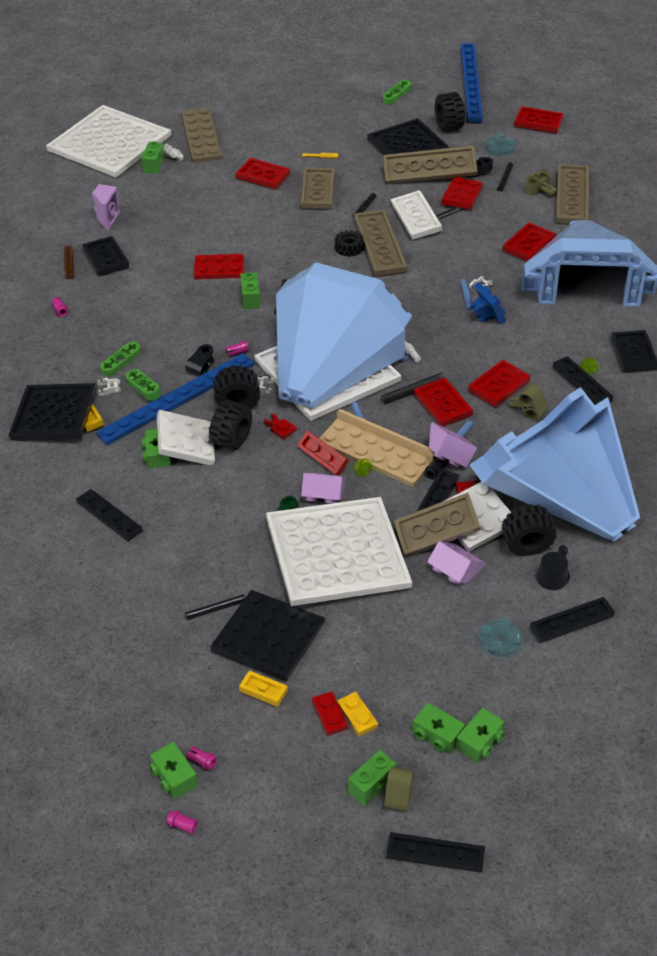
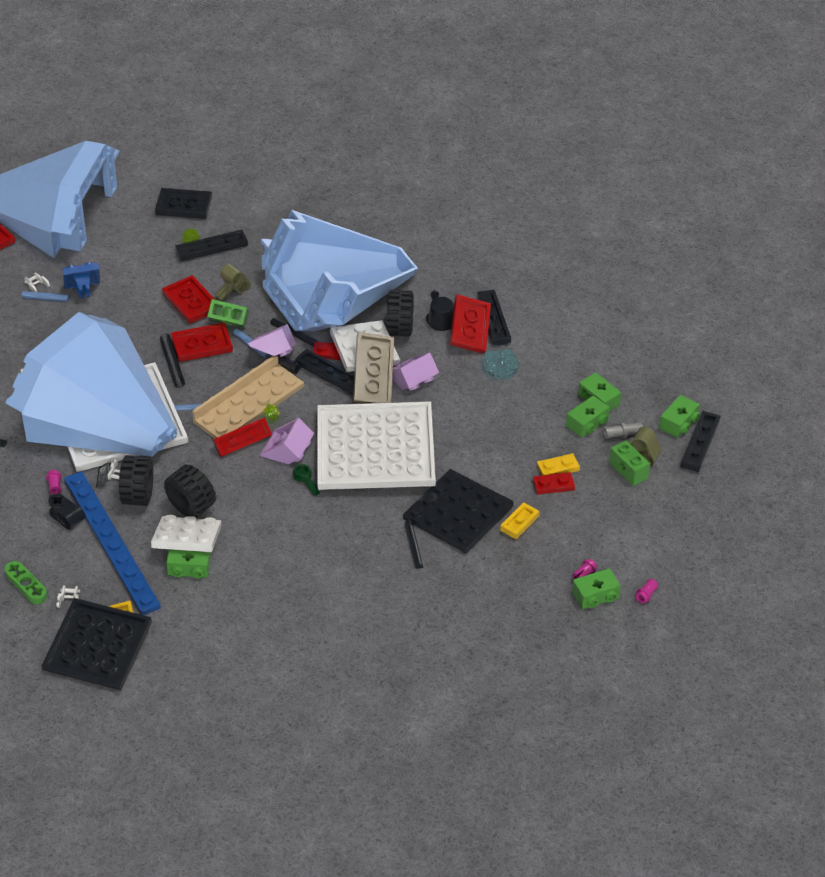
camera: 80 degrees left, 0 degrees up
(109, 515) = (267, 612): black plate -> none
(150, 390) = (85, 556): bright green beam -> none
(281, 428) = (193, 459): red plate -> none
(429, 768) = (622, 430): none -> light grey pin
(479, 821) = (679, 416): none -> bright green brick
(481, 407) = (228, 313): none -> bright green brick
(541, 594) = (470, 324): none -> red plate

